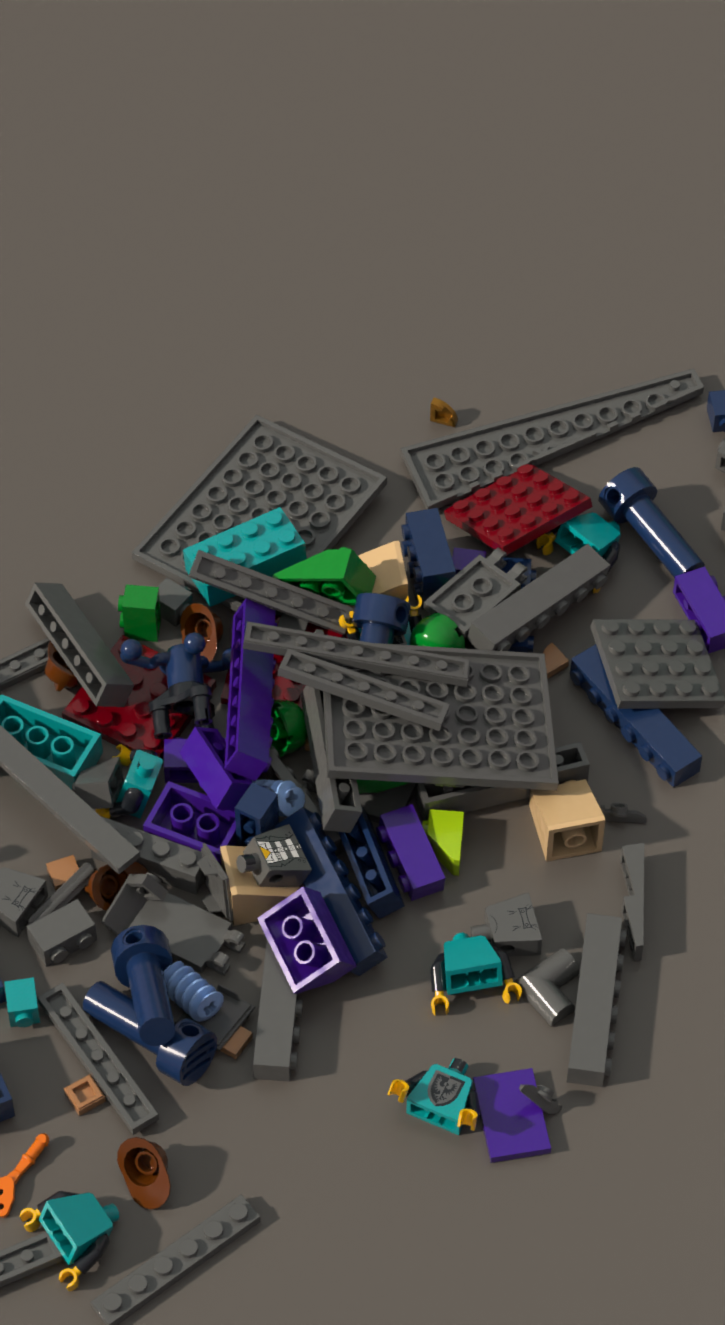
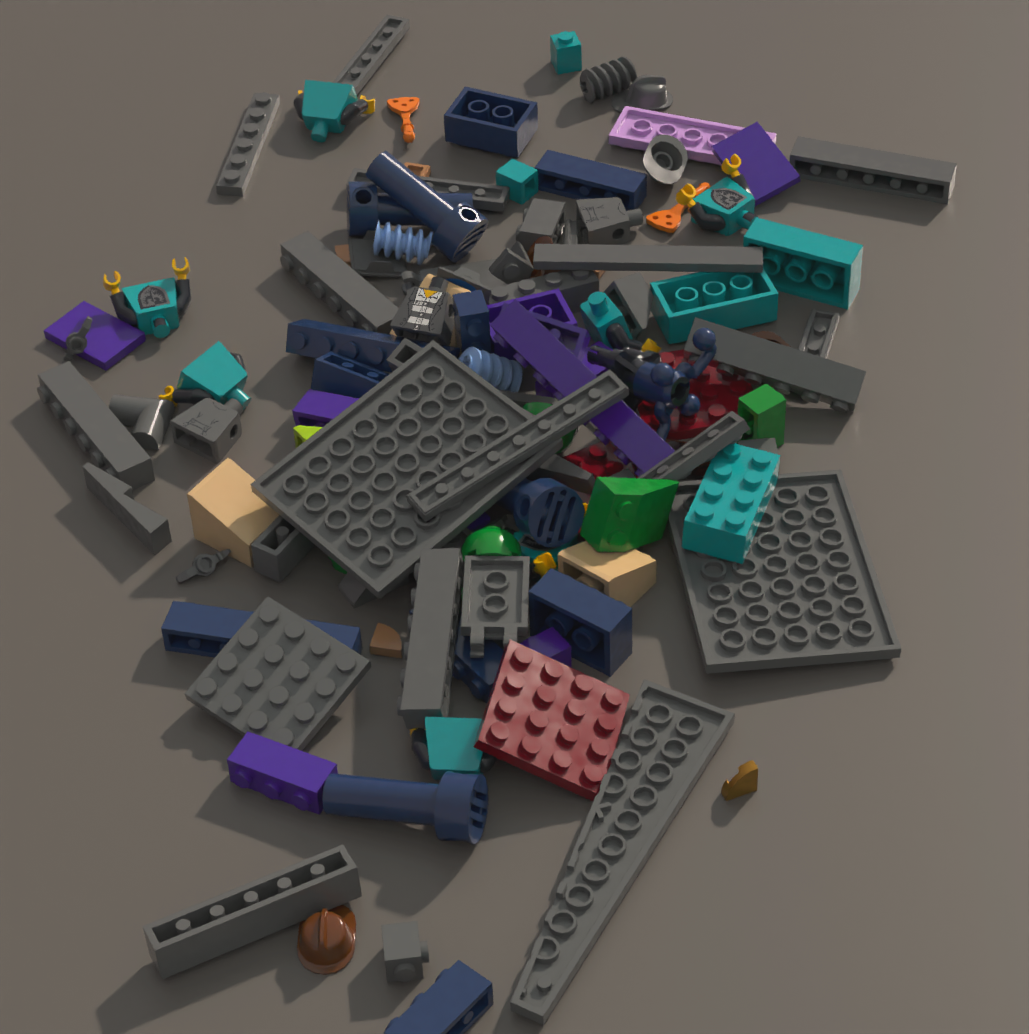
camera: 140 degrees right, 10 degrees down
(145, 1171) = (321, 159): reddish brown piece -> none
(306, 941) = (344, 300): dark purple slope -> none
(363, 689) = (474, 411): dark grey plate -> none

